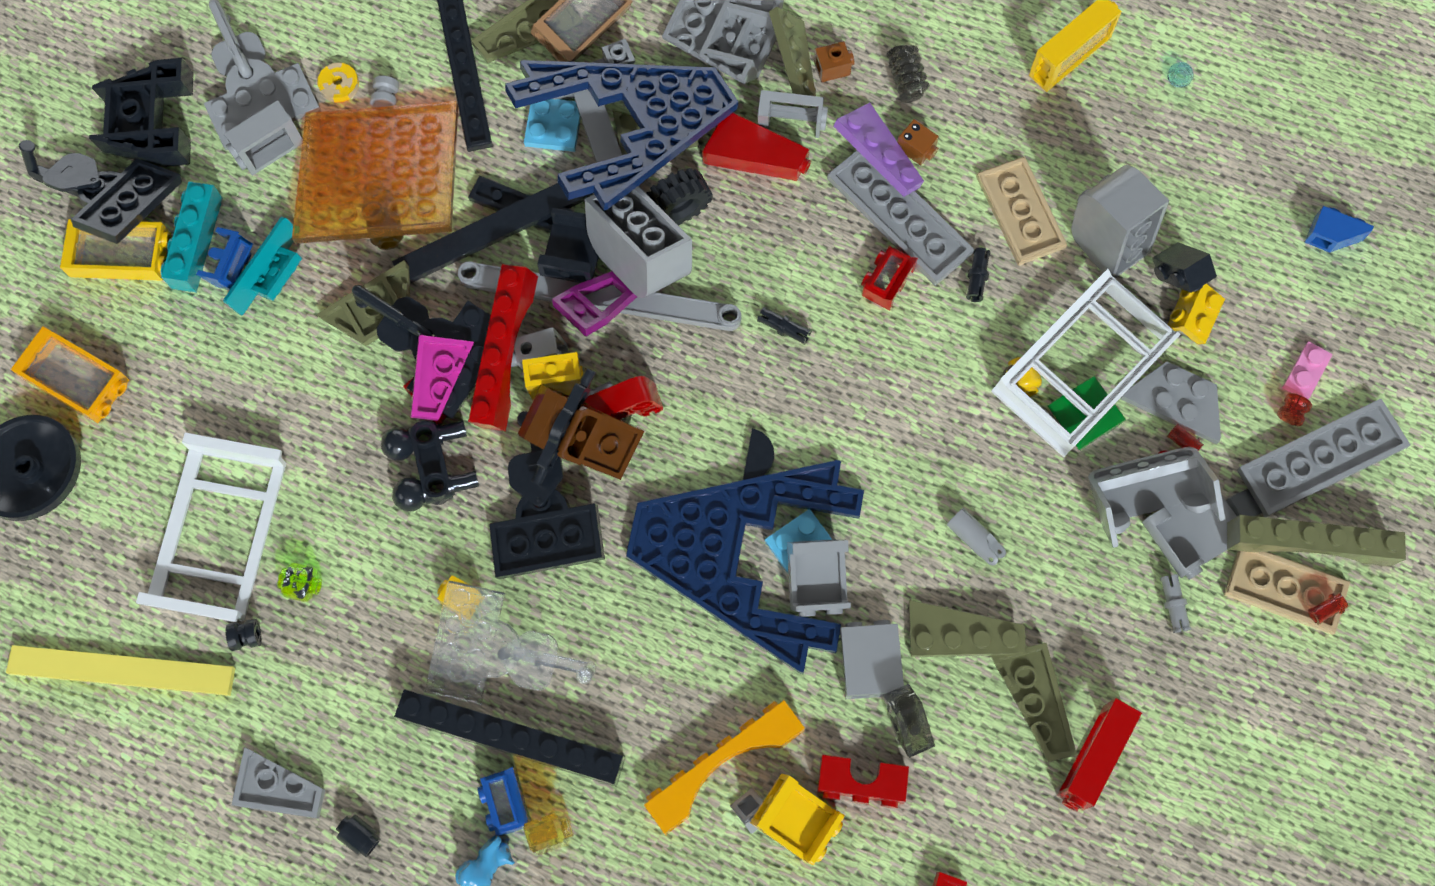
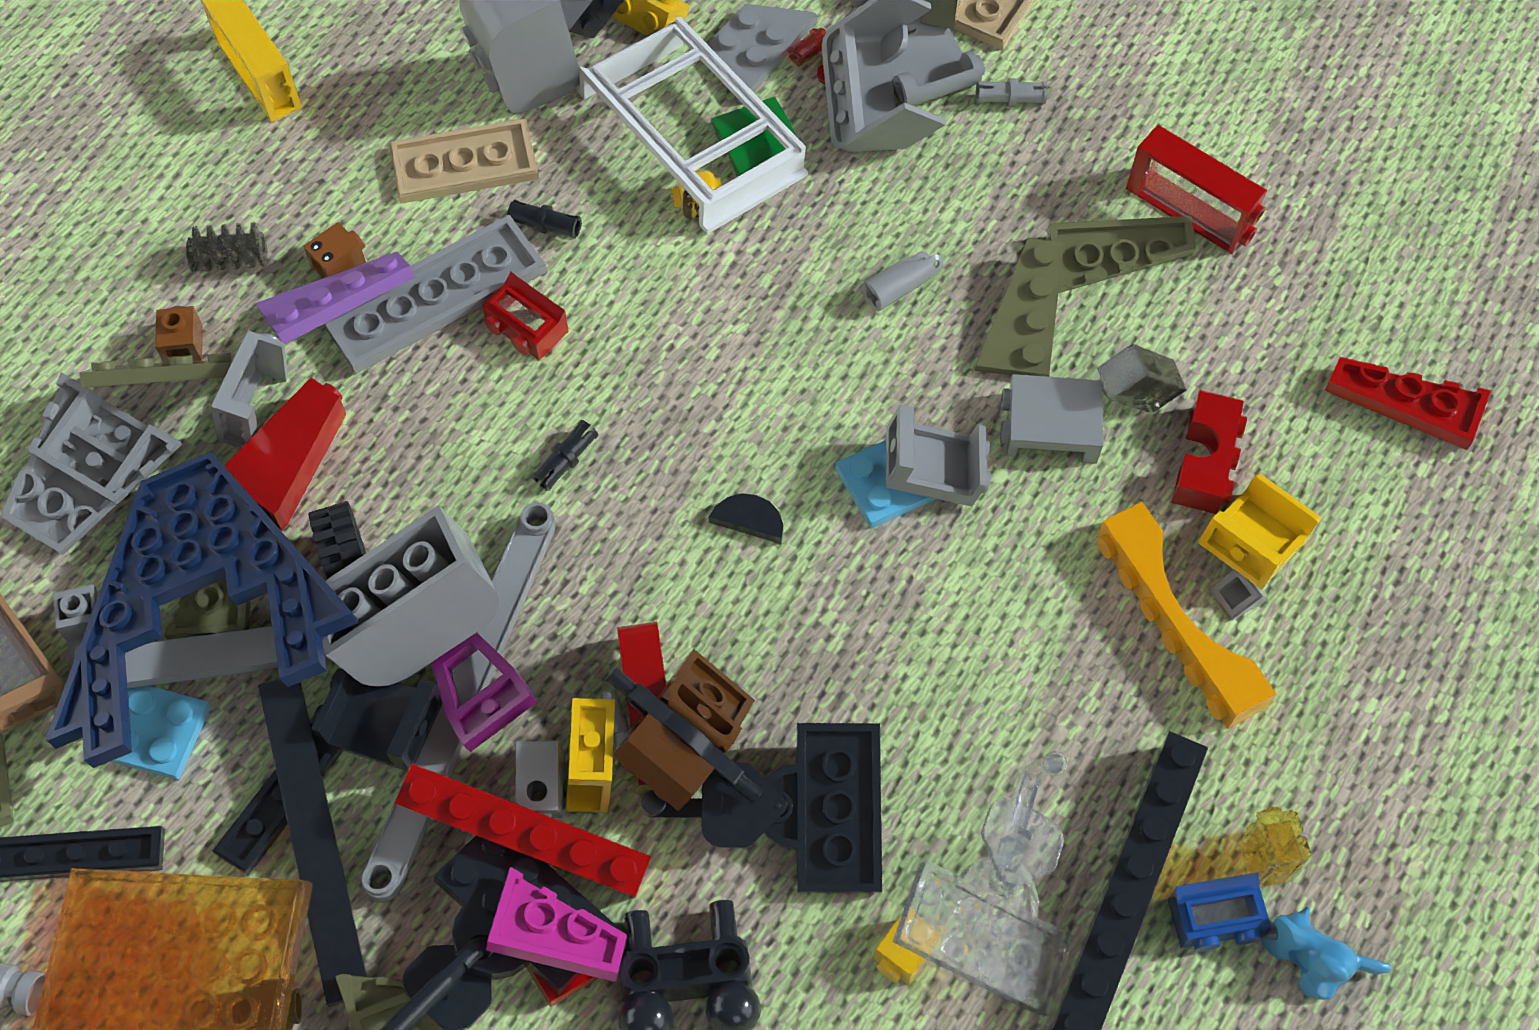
camera: 85 degrees left, 10 degrees down
(697, 541) = (866, 612): dark blue wing -> none

